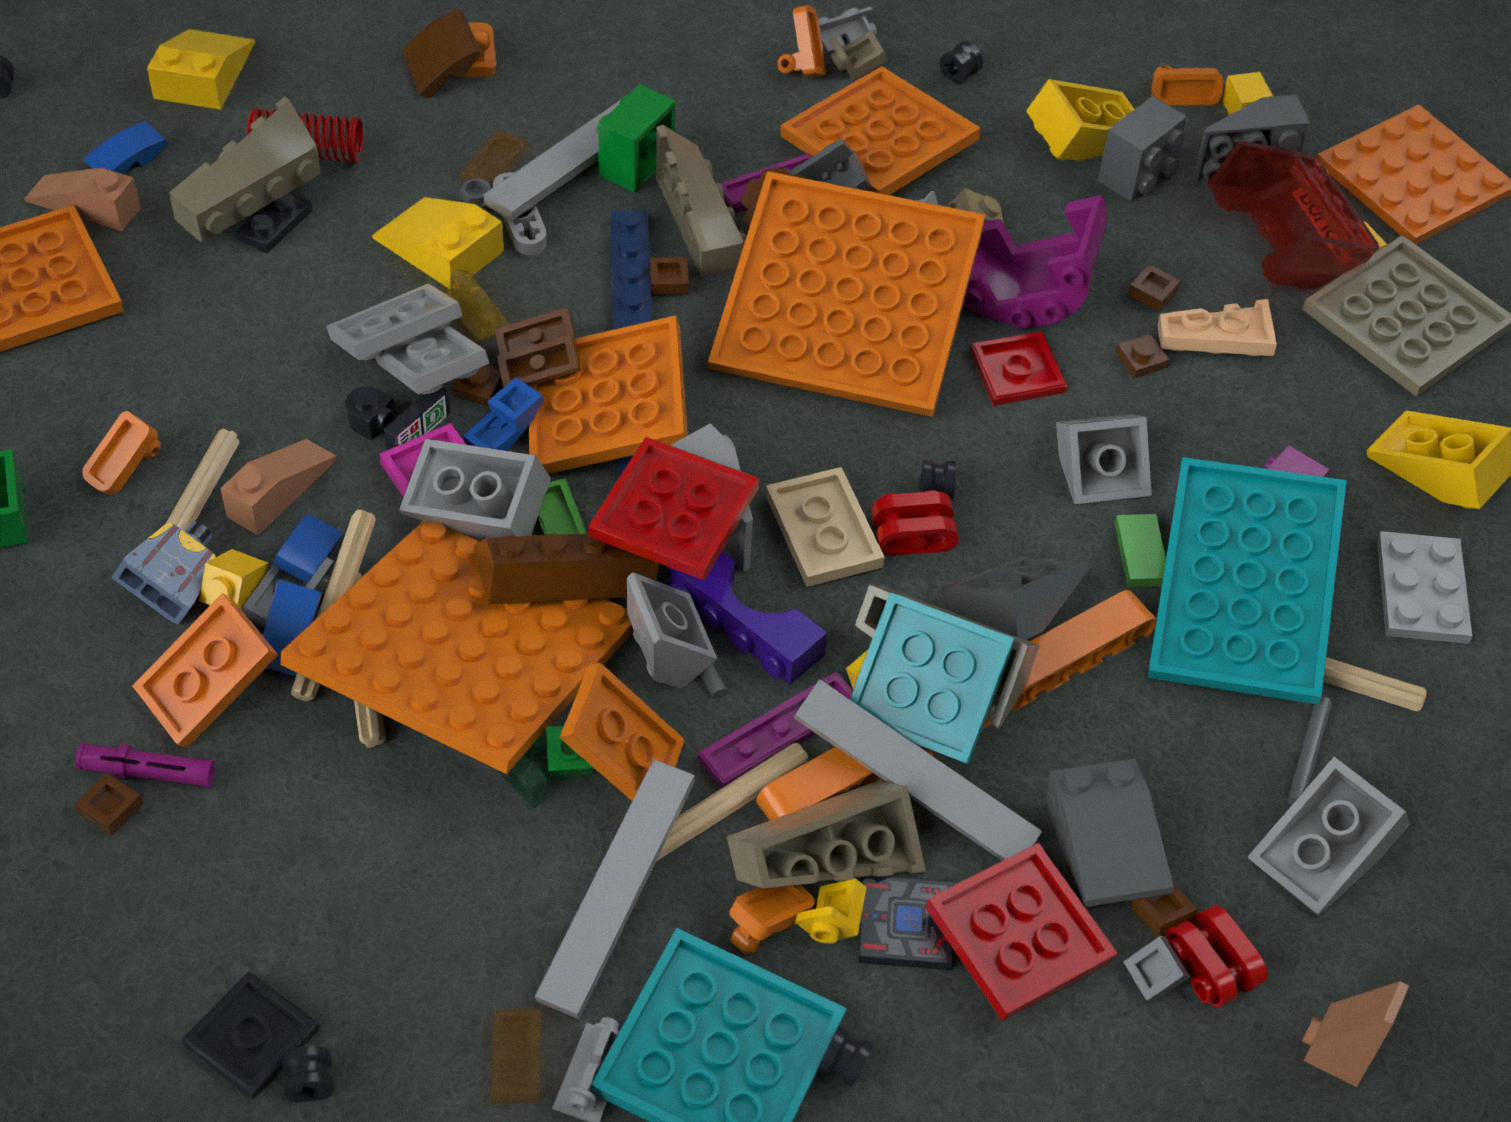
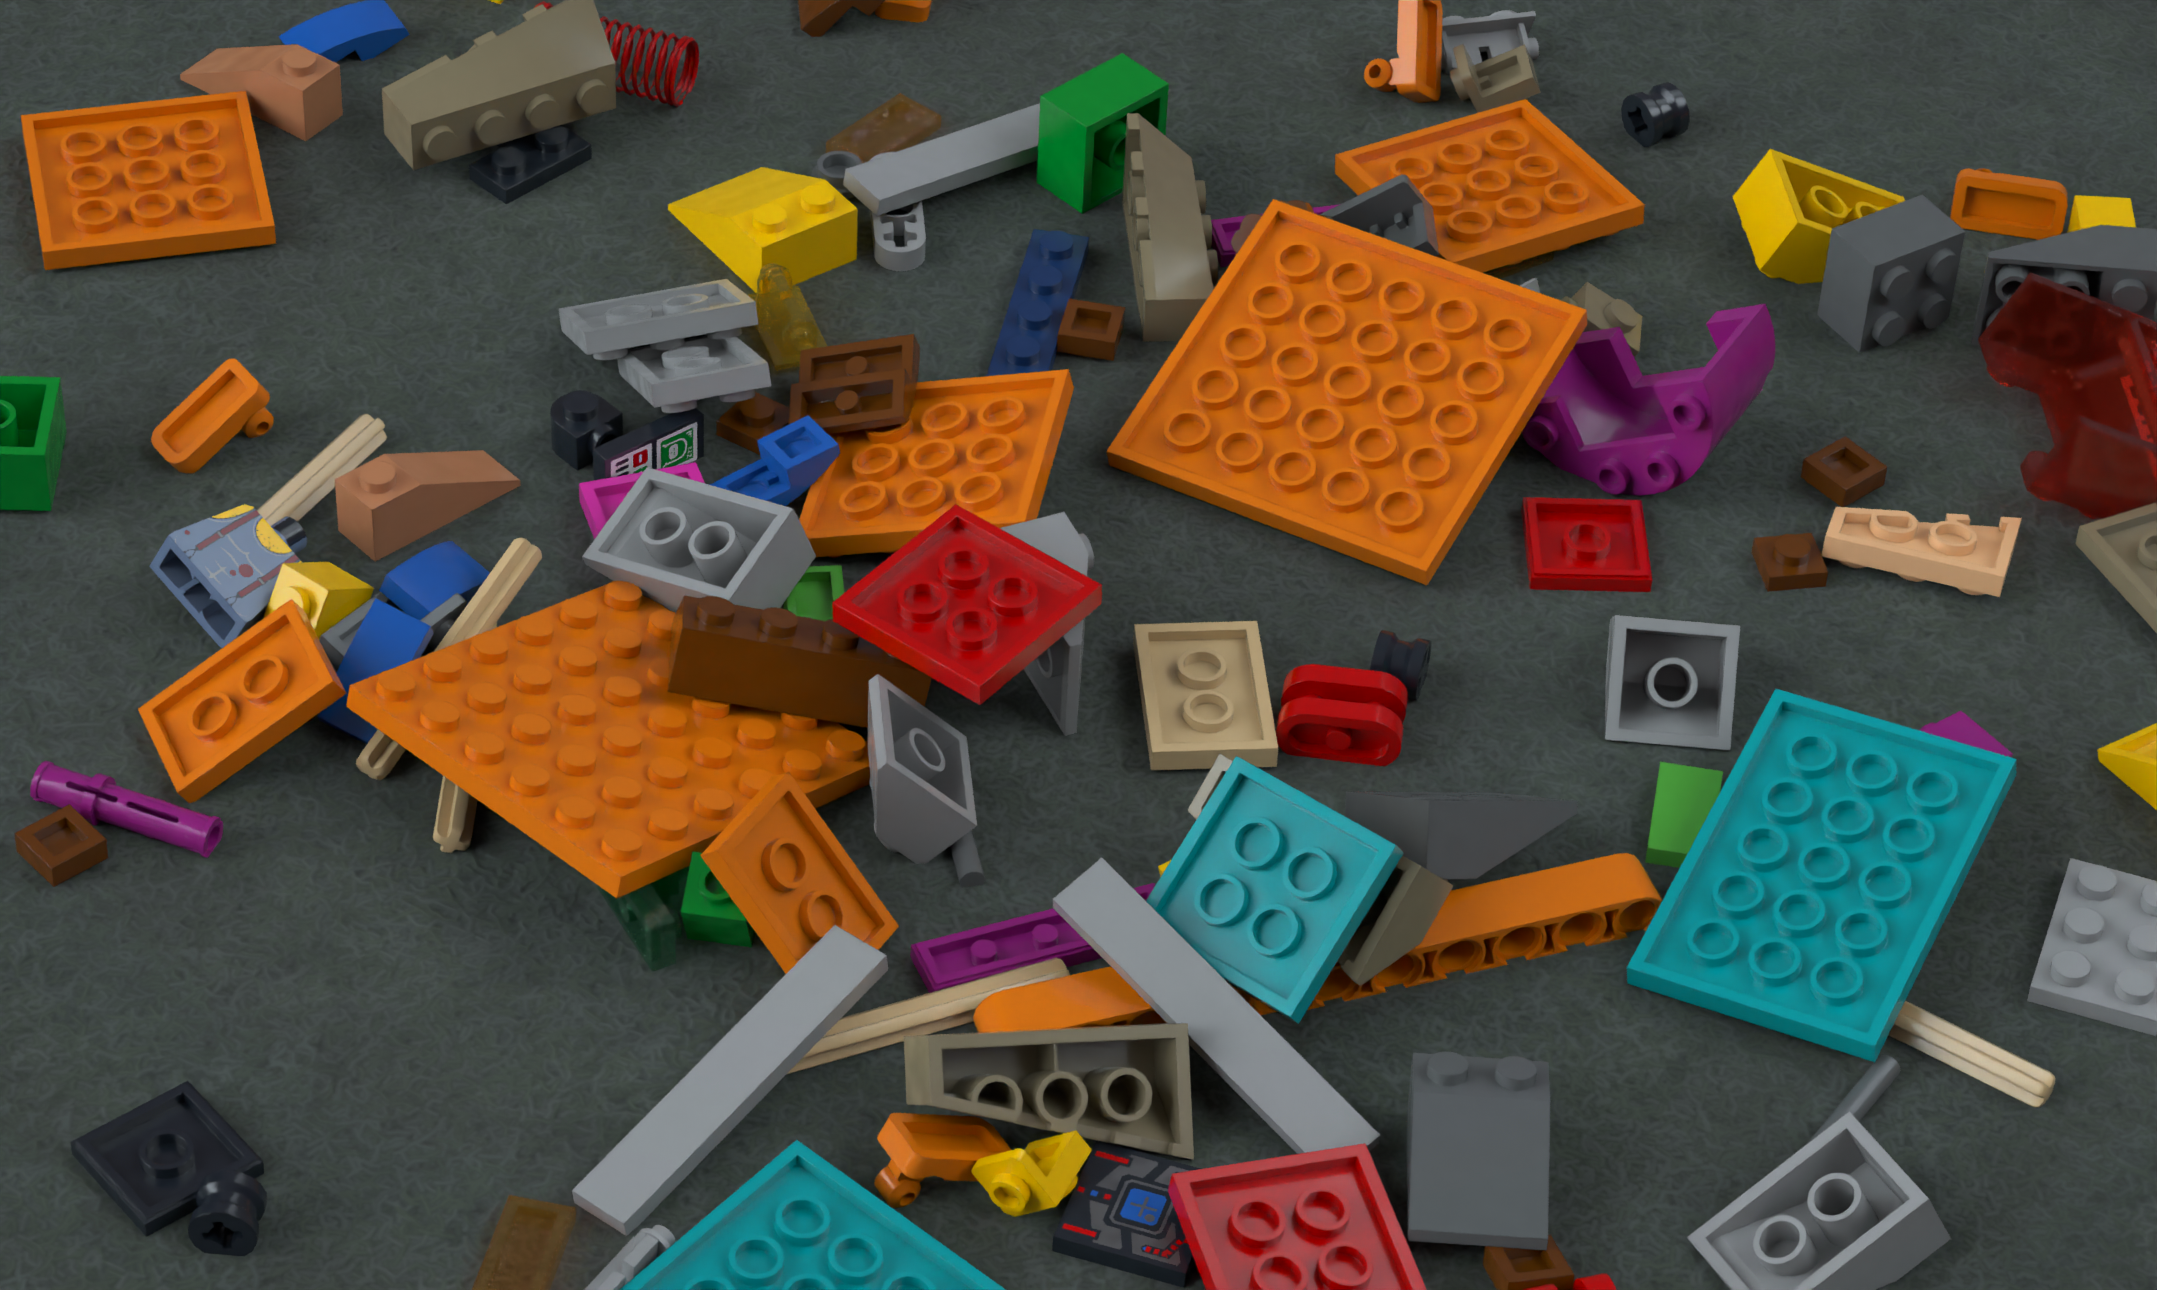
camera: 15 degrees right, 10 degrees down
(782, 641) = (1067, 817): dark purple arch -> none

